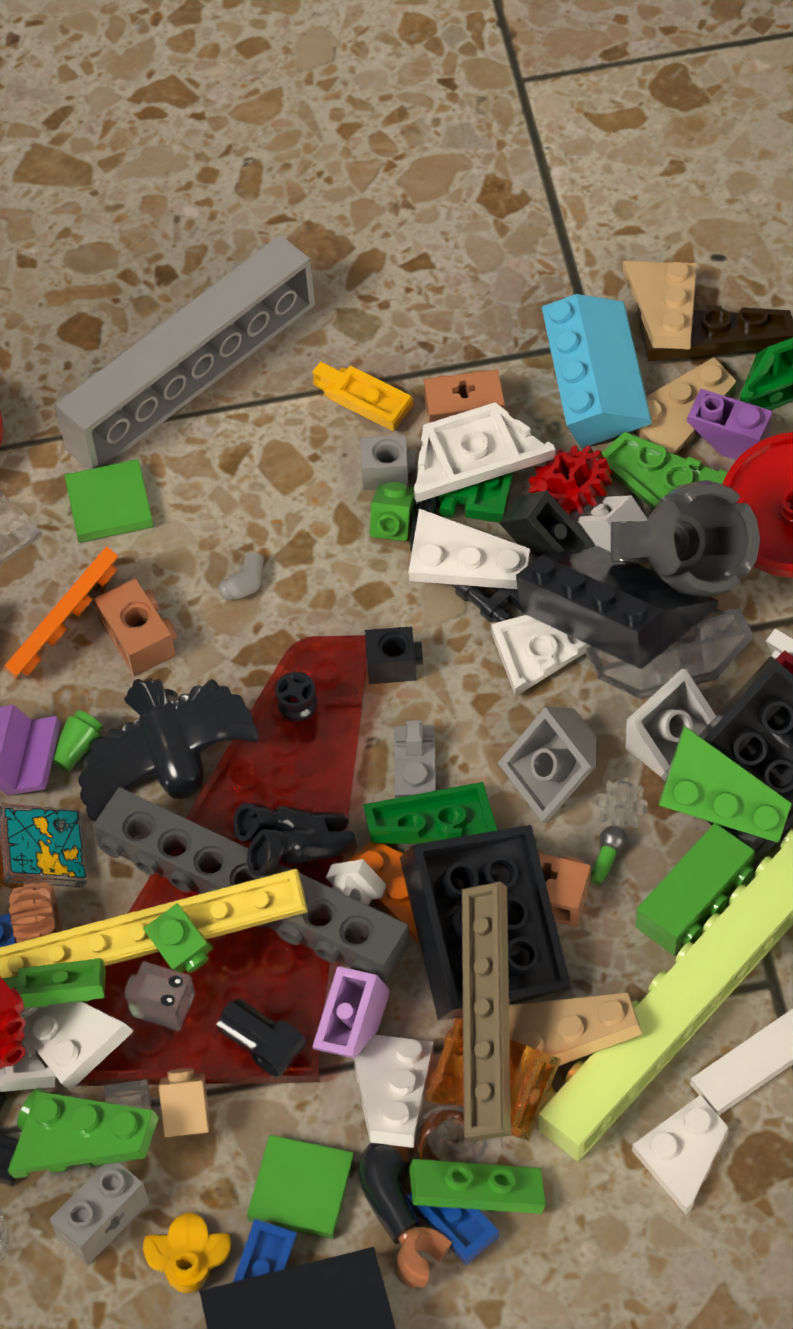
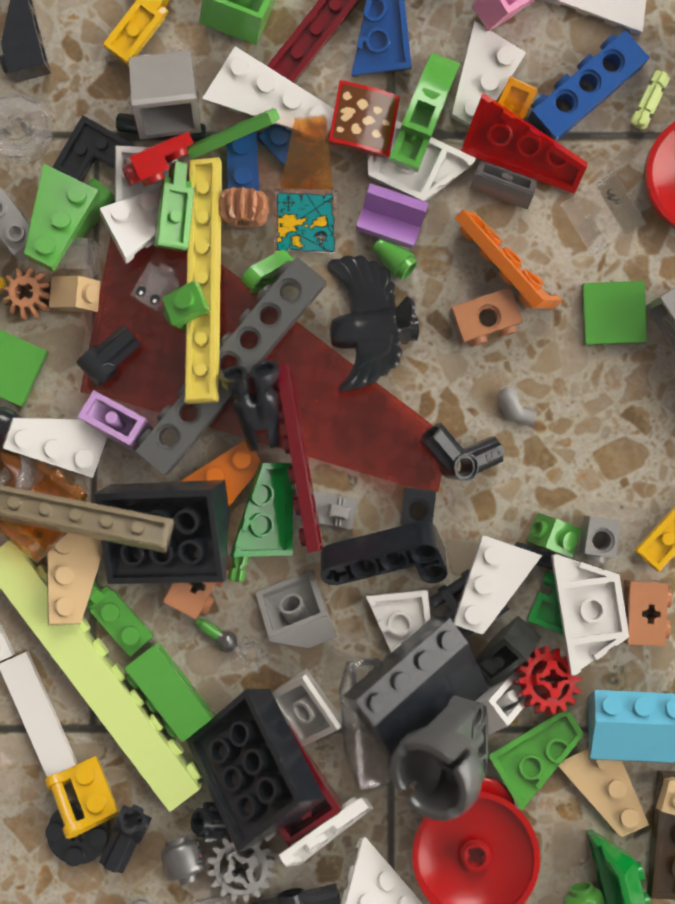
camera: 100 degrees right, 30 degrees up
(116, 874) = (265, 271): none -> bright green beam
(198, 1187) = (19, 303): none -> nougat gear
(300, 687) = (390, 425): black wheel -> none
(320, 616) = (448, 452): none -> black piece
(356, 880) = (216, 442): white tile -> none
(378, 775) = (299, 472): none -> dark red plate
(458, 681) = (386, 552): none -> black beam
(623, 966) = (118, 619): none -> bright green hinge
(721, 791) = (229, 728): bright green wing -> none
(729, 423) = (572, 822): medium lavender slope -> none

